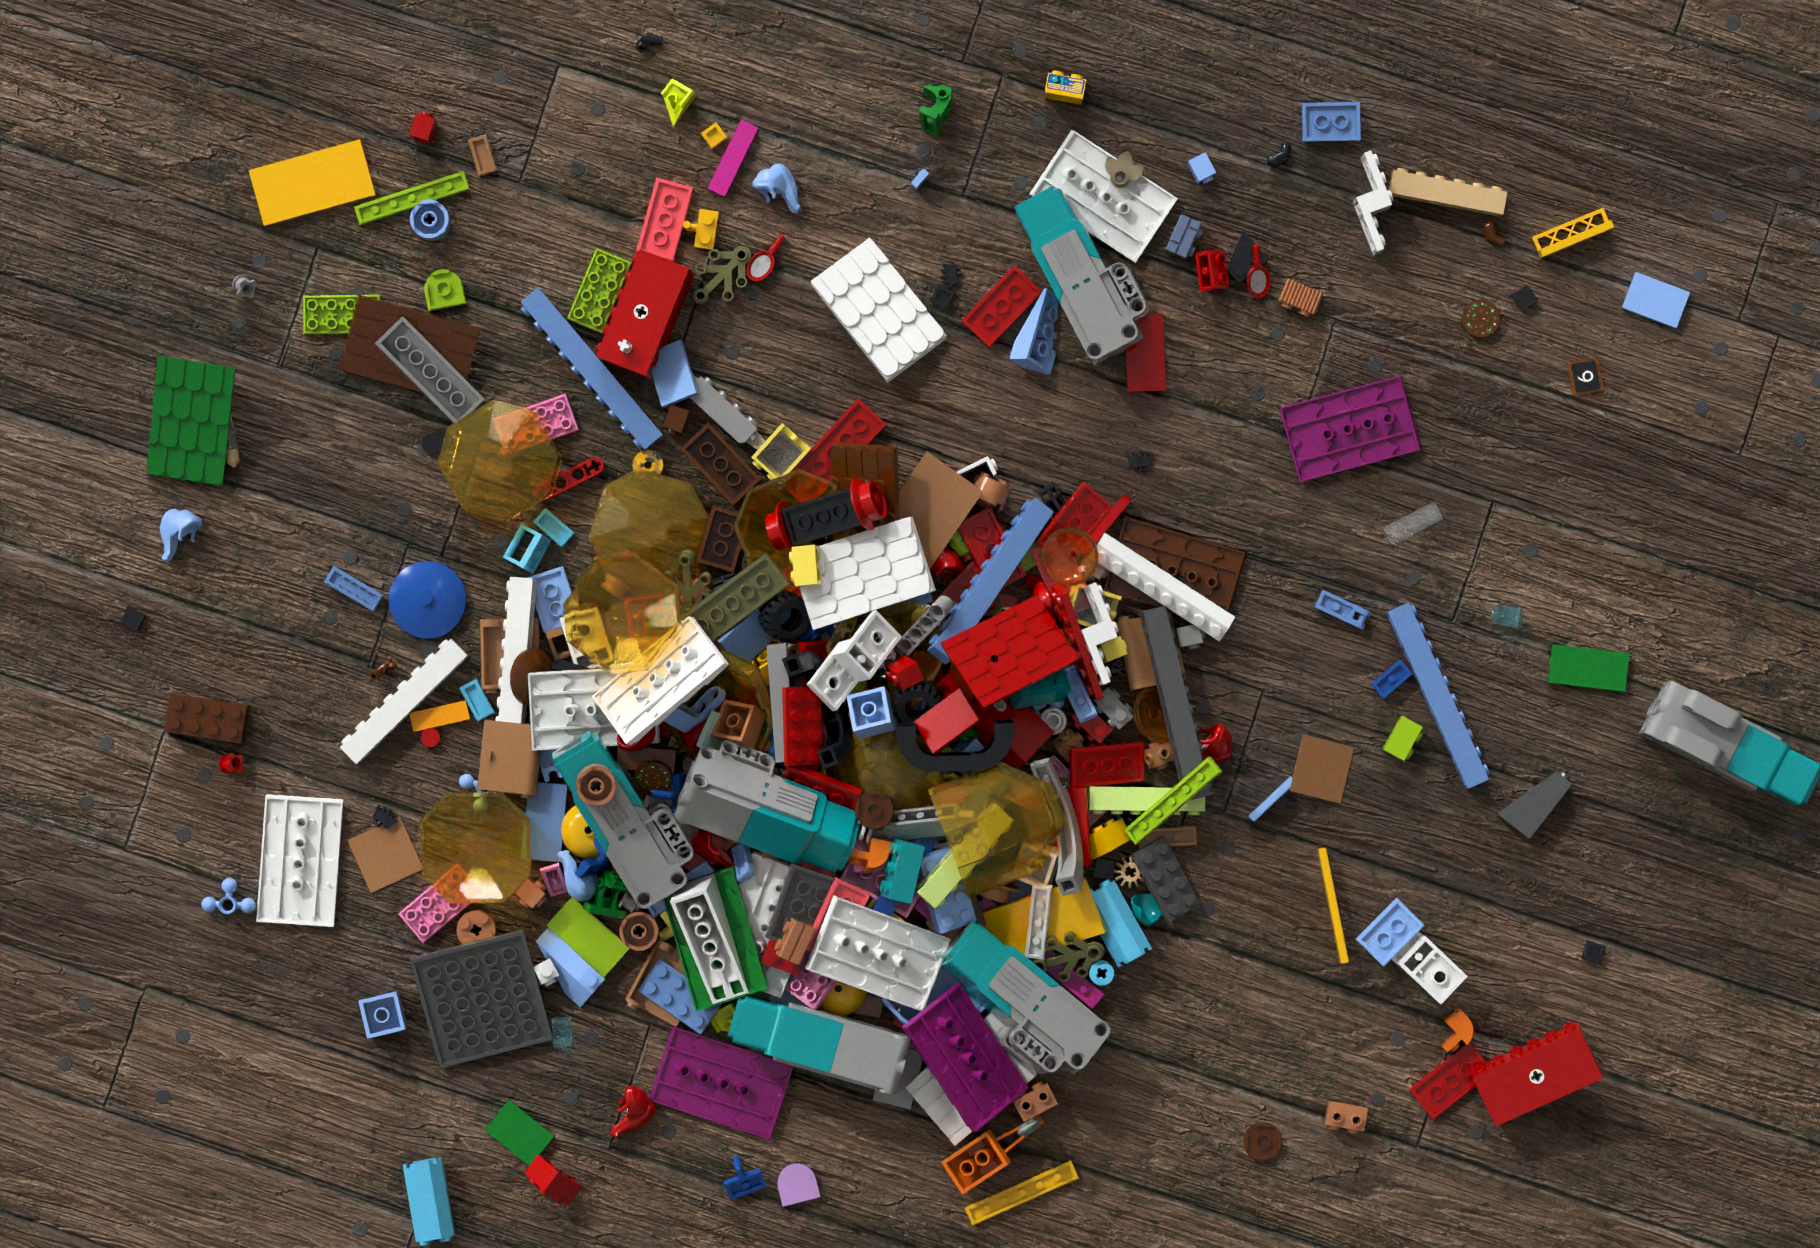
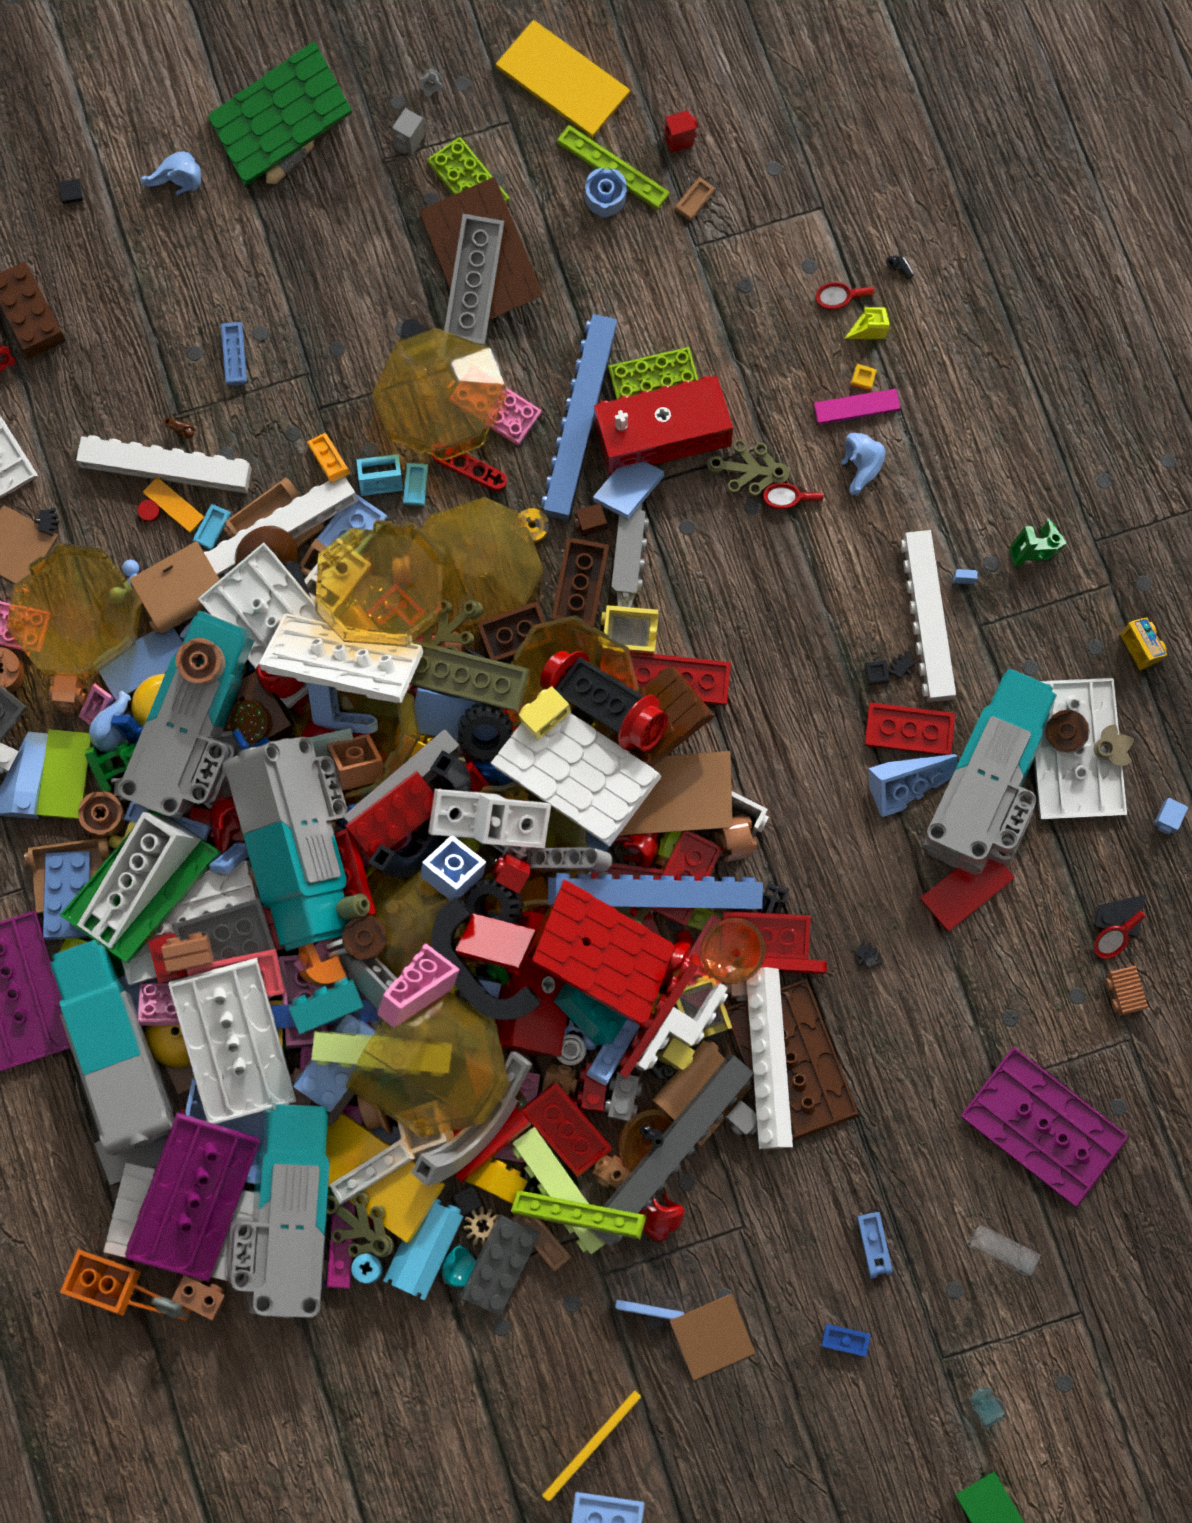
camera: 45 degrees right, 10 degrees down
(274, 334) = (408, 132): none -> light grey brick
(427, 599) = (270, 423): blue dish -> none
(444, 290) = (553, 248): lime tile -> none
(489, 578) = (328, 457): none -> light orange tile
(637, 105) = (837, 295): none -> red piece
(665, 218) = (761, 387): coral tile -> none
(705, 229) = (777, 426): yellow plate -> none
(846, 802) = (353, 906): none -> olive brick
(878, 310) = (822, 624): white piece -> none
(929, 227) = (928, 615): none -> white brick
(940, 794) = (418, 986): none -> bright pink wedge
(1021, 1192) = (104, 1350): yellow tile -> none
(1088, 195) = (1067, 731): none -> reddish brown tile
(1156, 709) = (652, 1135): none -> black arm
(1183, 237) = (1097, 845): sand blue brick -> none
(1212, 270) = (1088, 892): red brick -> none
(1402, 738) = (798, 1393): lime brick -> none
(1437, 696) = (863, 1396): medium blue brick -> none

